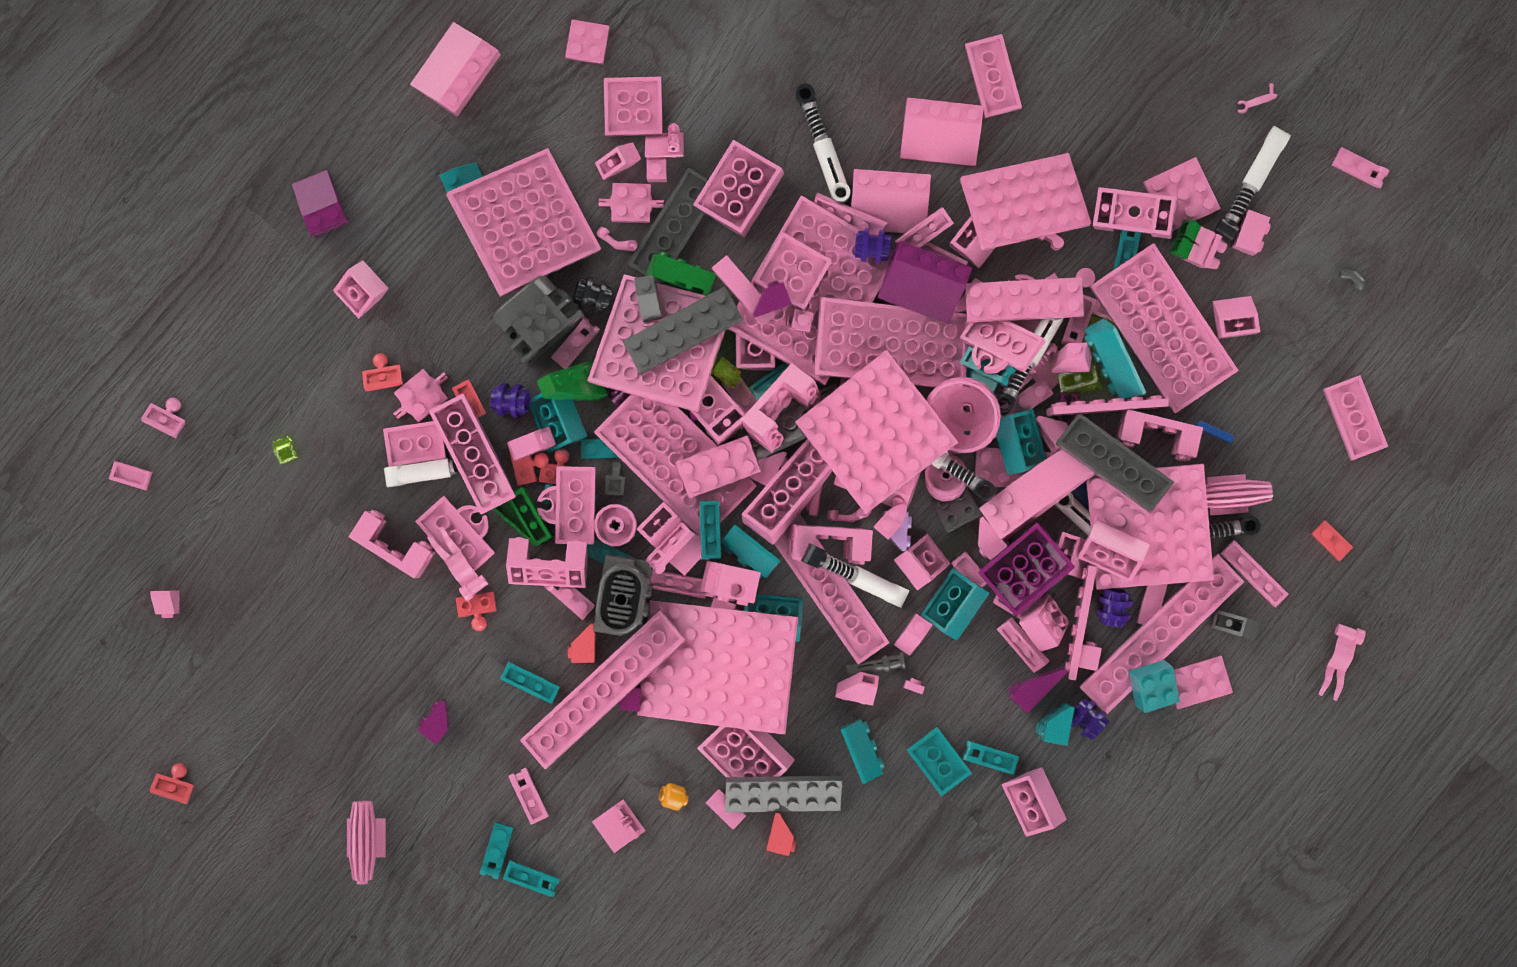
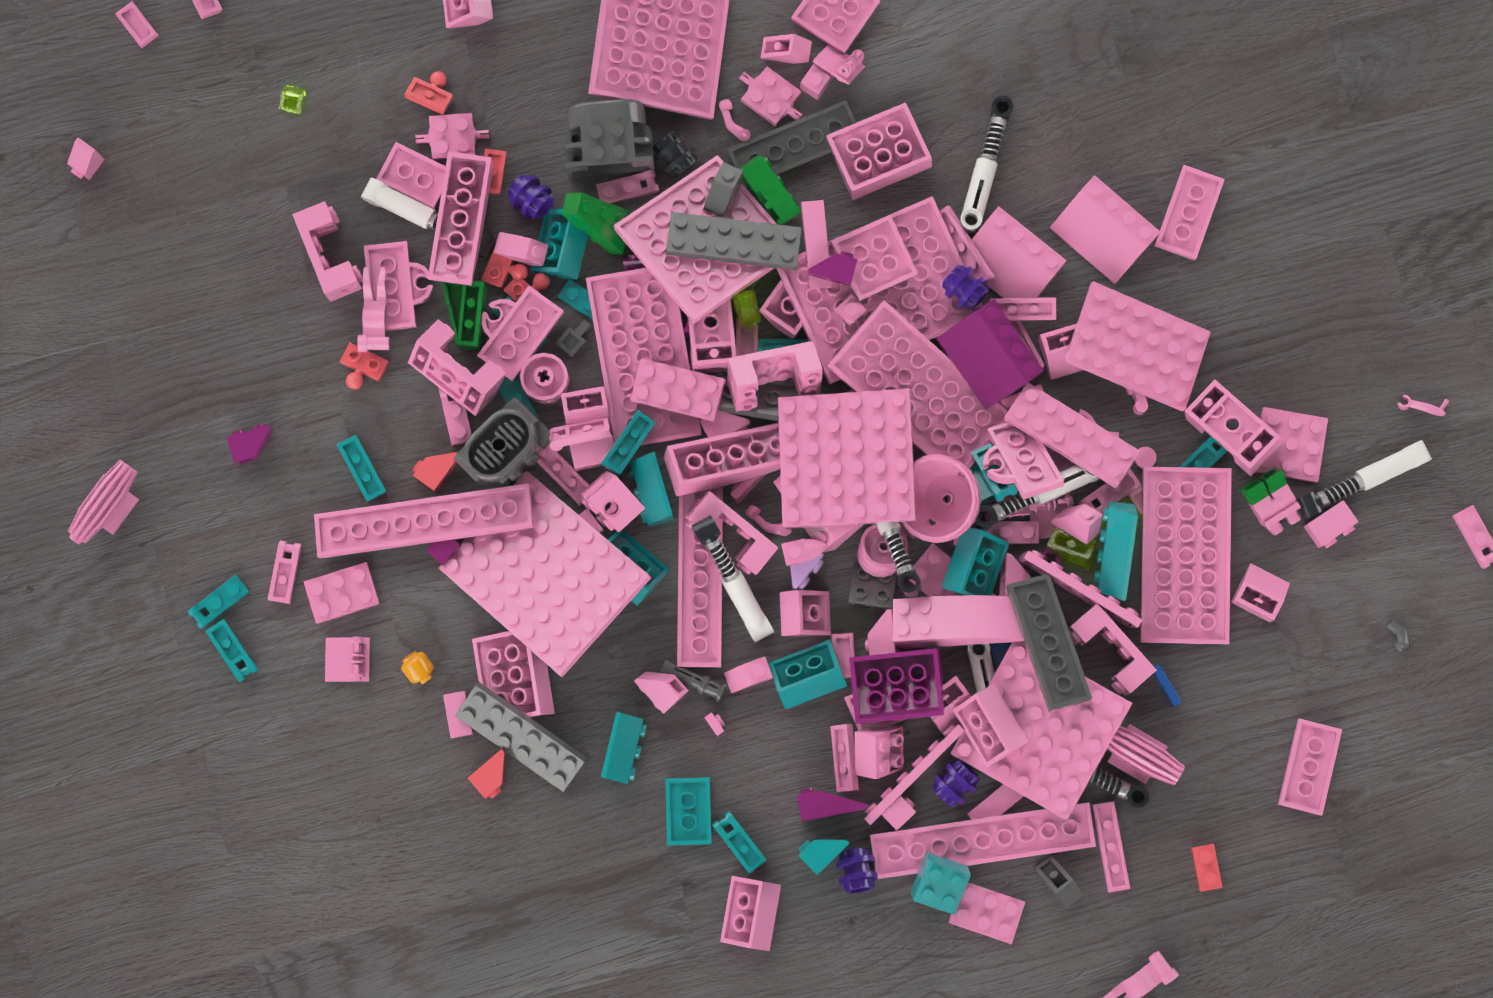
camera: 35 degrees right, 5 degrees down
(580, 781) = (341, 593): none -> bright pink plate

